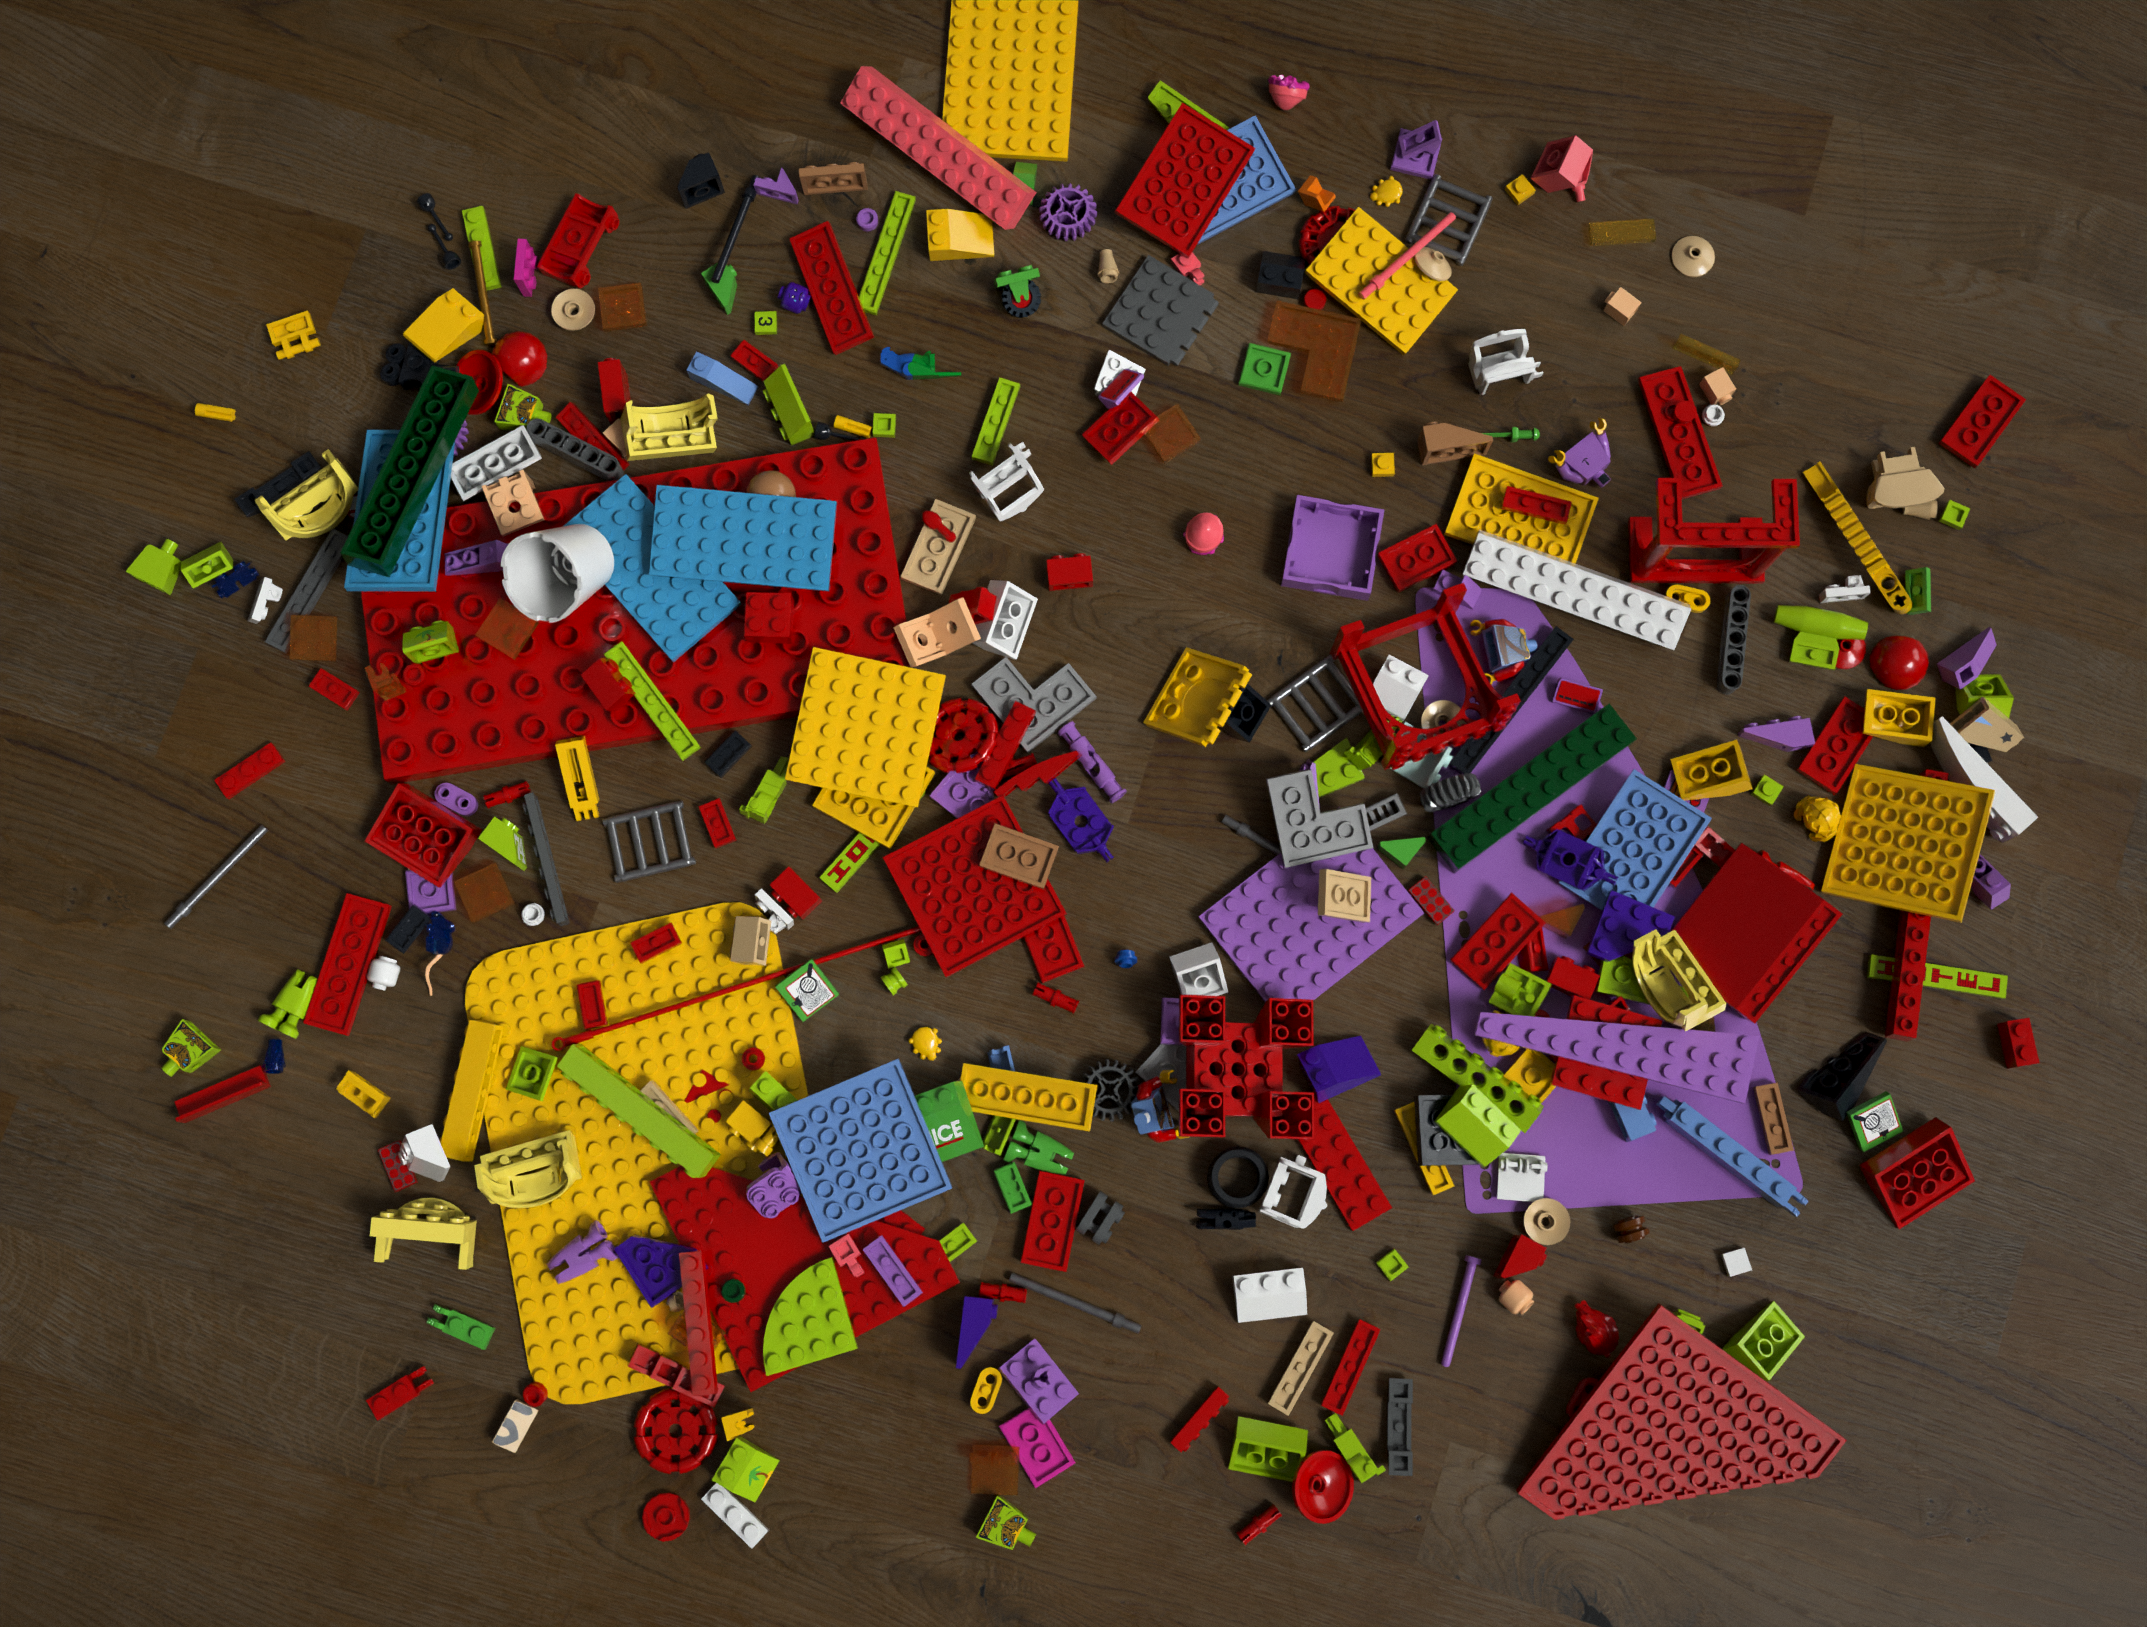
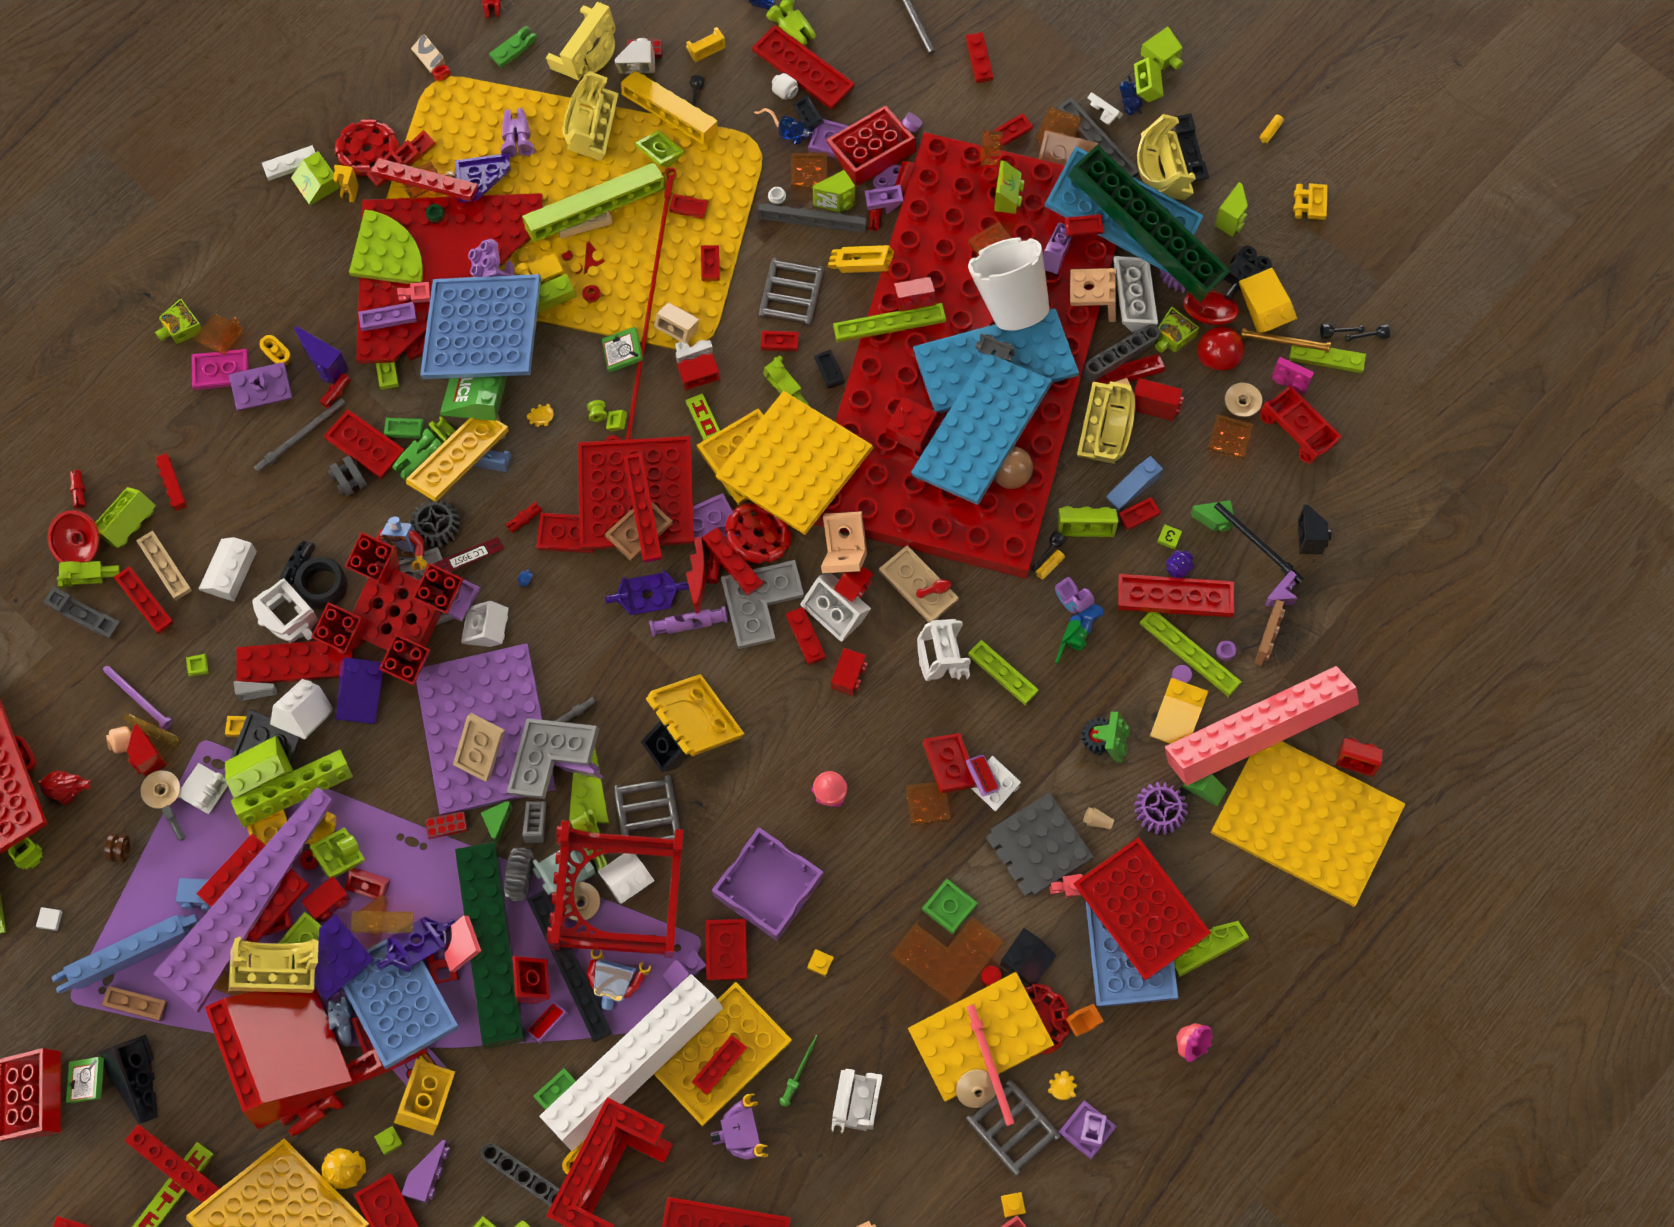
camera: 115 degrees right, 10 degrees down
(342, 614) = (1059, 147): none -> medium nougat plate
(344, 404) = (1233, 212): none -> lime slope
(374, 801) = (912, 122): none -> medium lavender tile
(422, 1077) = (696, 83): none -> black hinge
(443, 537) = (1083, 225): none -> red tile
(455, 777) = (904, 175): none -> red tile
(490, 785) = (884, 197): none -> medium lavender slope
(640, 575) = (1002, 349): none -> dark grey hinge
(666, 1516) = (314, 121): red tile -> none
(884, 381) = (1072, 598): none -> medium lavender animal
(884, 425) = (1039, 587): lime plate -> none
(914, 250) = (1182, 673): none -> medium lavender tile
(924, 48) = (1359, 757): none -> red slope
(996, 858) = (642, 507): none -> red plate
(1049, 637) = (805, 636): none -> red plate
(1129, 1034) = (470, 555): none -> sticker
(1393, 1110) = (301, 709): none -> white slope
(1393, 1187) = (252, 690): none -> light grey slope
(1449, 442) = (810, 1016): medium nougat slope -> none
(1488, 1269) = (152, 730): none -> clear yellow tile
(1498, 941) = (385, 856): red tile -> none
(1548, 724) = (531, 979): none -> red slope
(1551, 808) = (463, 944): none -> coral tile
(1569, 902) = (382, 922): none -> clear yellow tile
(1572, 1190) = (171, 818): none -> dark grey bar
(1637, 653) = (554, 1089): none -> bright green plate
(1682, 896) = (339, 1016): none -> sand blue animal

